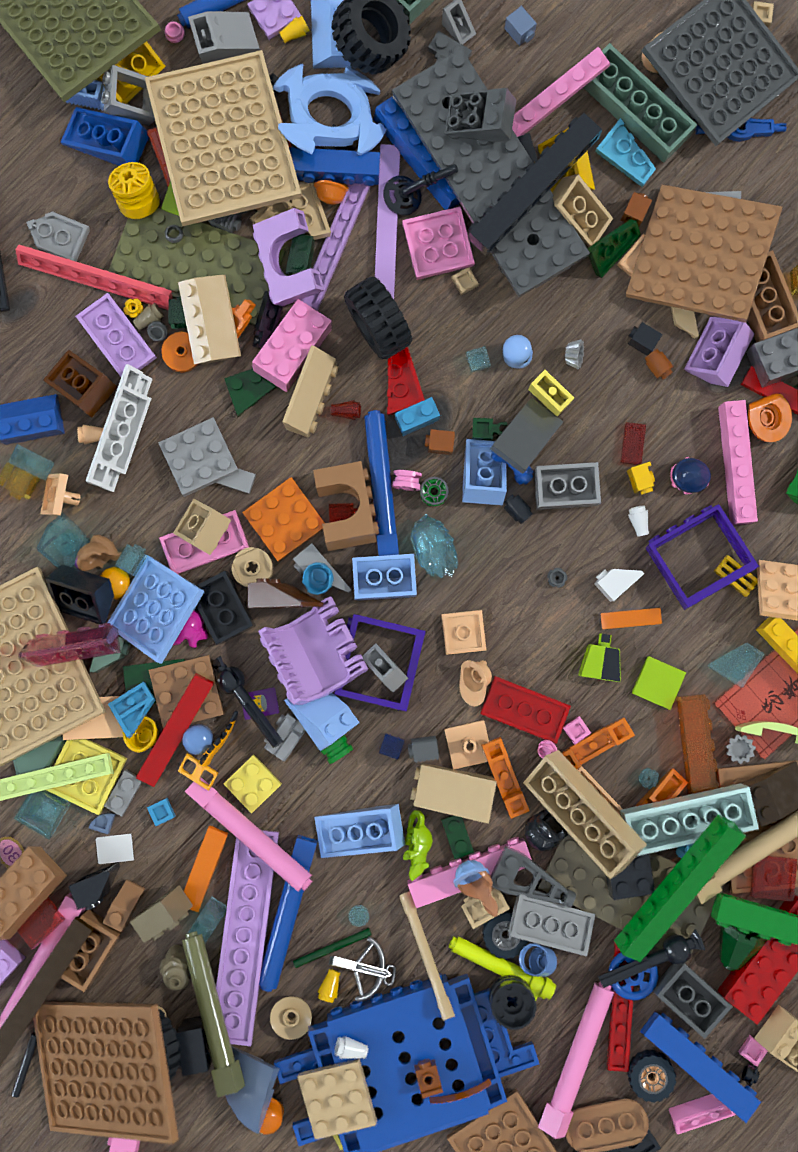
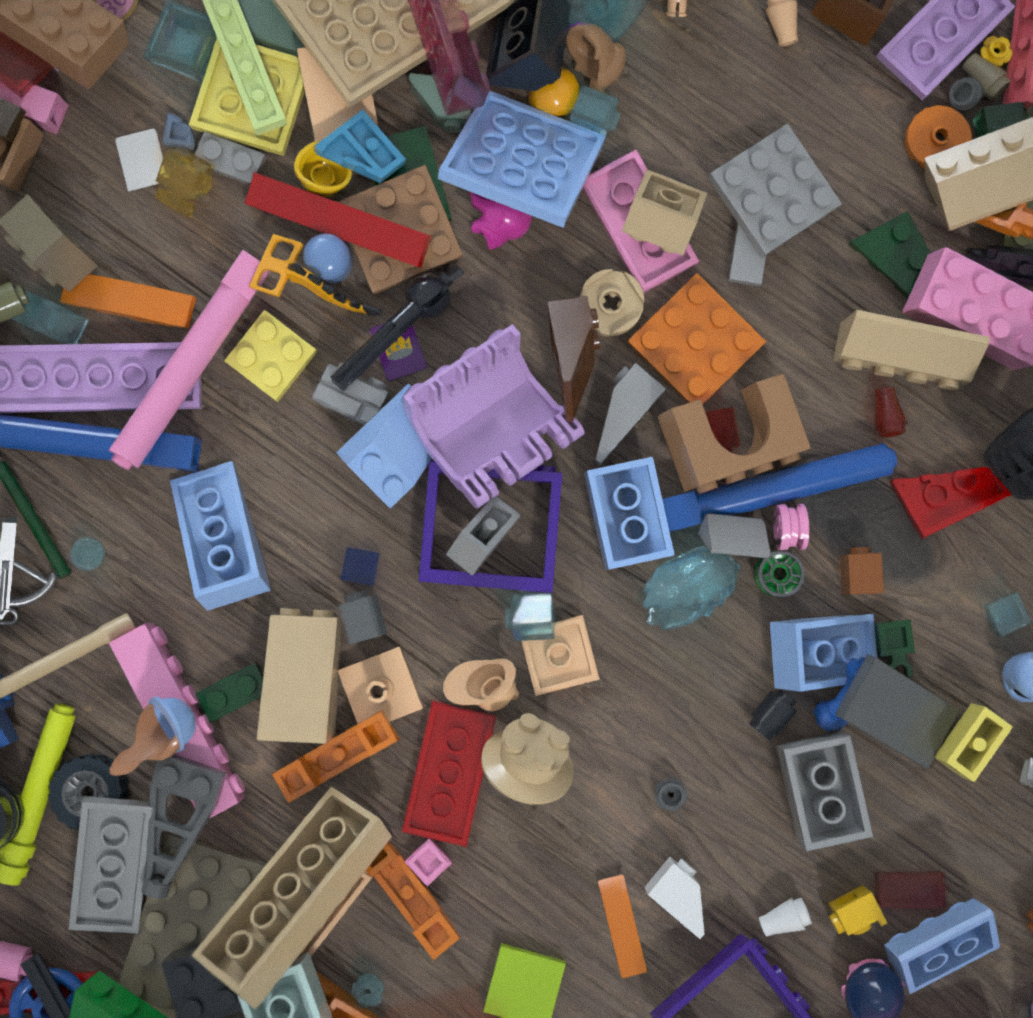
camera: 80 degrees right, 0 degrees up
(92, 888) = (75, 132): black slope -> none
(121, 429) = (800, 59): white slope -> none
(123, 906) = (54, 185): medium nougat slope -> none
(132, 821) = (185, 177): none -> clear yellow brick
(161, 812) = (207, 220): dark azure plate -> none
(223, 608) = (539, 265): black brick -> none
(317, 578) = (611, 406): dark azure hair -> none
(337, 749) = (342, 480): green wheel -> none
(407, 515) = (735, 535): none -> light grey slope
(417, 416) = (897, 528): dark azure brick -> none
(419, 842) = (214, 633): lime animal -> none
(438, 645) = (531, 617): none -> clear light blue brick
(477, 914) = (115, 739): tan bracket -> none
(524, 660) = (529, 761): none -> tan piece
(541, 960) = (51, 856): medium blue helmet -> none
(544, 831) = (258, 832): black hair -> none
(546, 747) = (392, 816): bright pink plate -> none
(601, 661) = (546, 887): torso -> none
(667, 430) = (943, 944): none -> light blue slope

